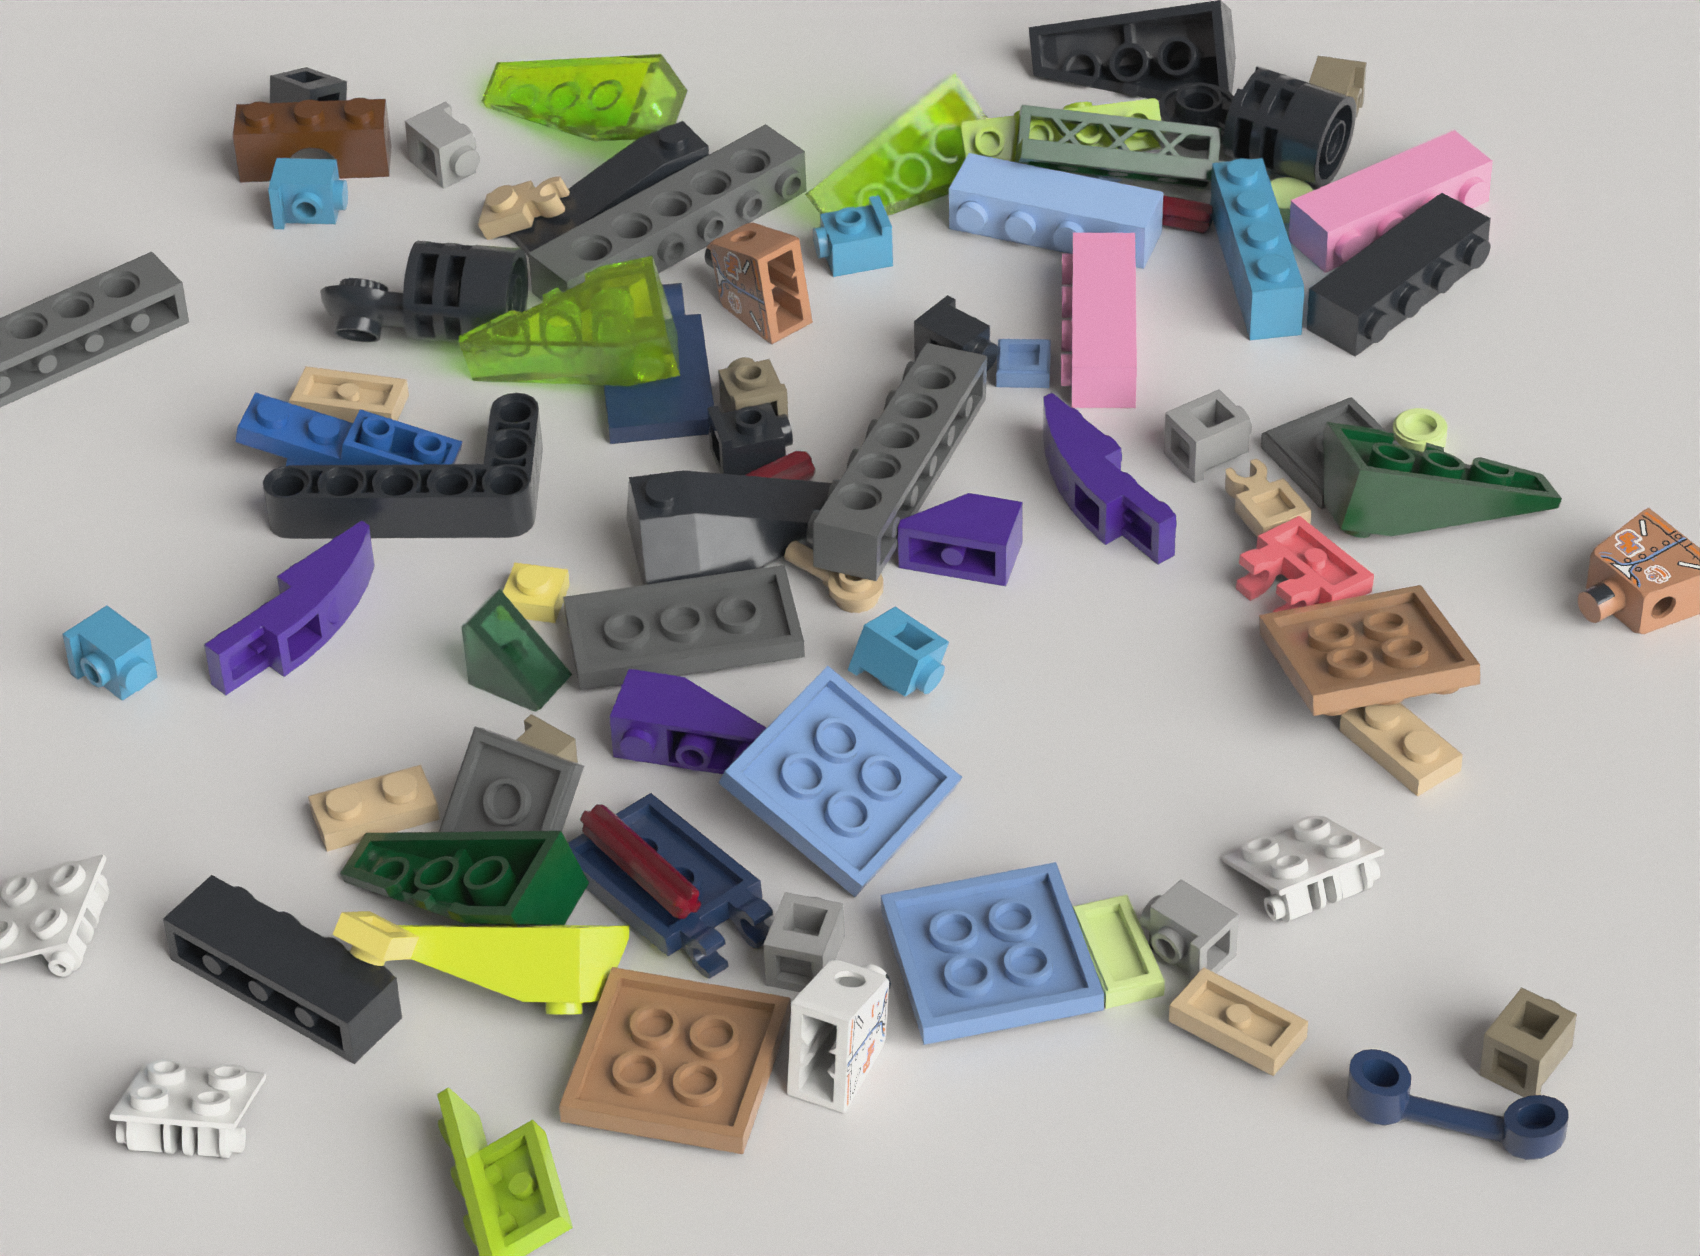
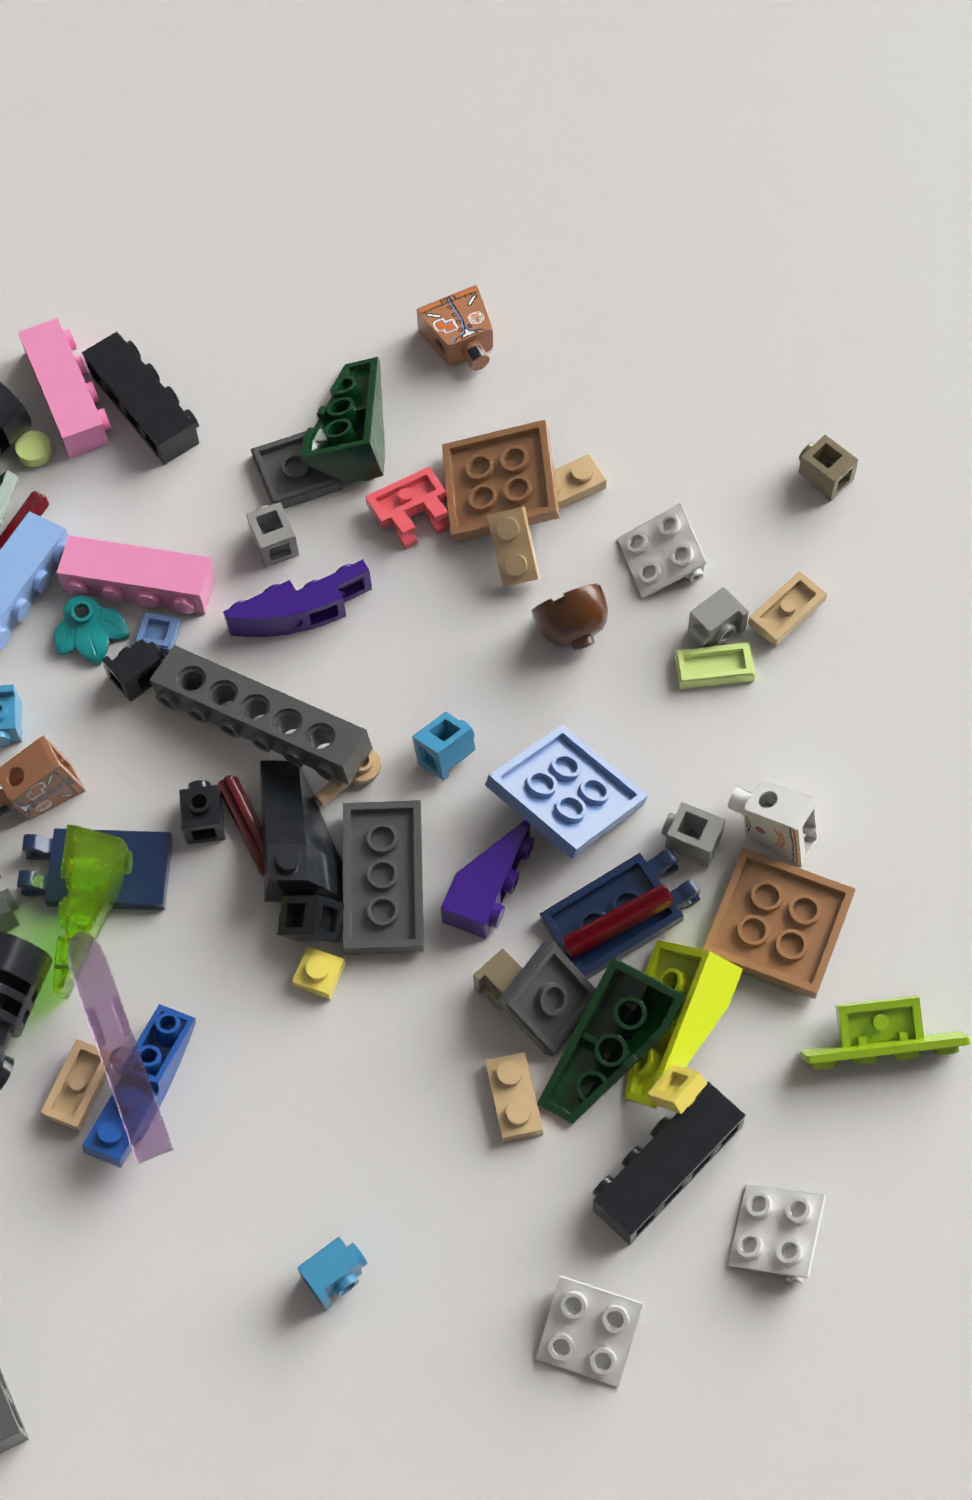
camera: 80 degrees left, 20 degrees up
(306, 614) = (303, 1121): dark purple slope -> none
(373, 392) = (117, 1048): none -> clear purple piece
(423, 499) = (205, 1035): black beam -> none
(509, 656) = (395, 989): clear green slope -> none
(600, 557) = (310, 918): none -> black brick
(751, 384) = (163, 812): dark tan brick -> none
(964, 539) = (340, 682): dark purple slope -> none
(991, 953) = (713, 732): medium blue plate -> none
(1012, 294) = (91, 633): none -> teal plate
(1143, 757) = (573, 617): none -> reddish brown cylinder
(1249, 676) = (513, 546): none -> tan plate
(1256, 249) = (92, 471): dark azure brick -> none
(1264, 503) = (345, 512): tan plate -> none
(1381, 1095) = (885, 482): dark blue piece -> none
(1419, 426) = (289, 420): yellowish green tile -> none

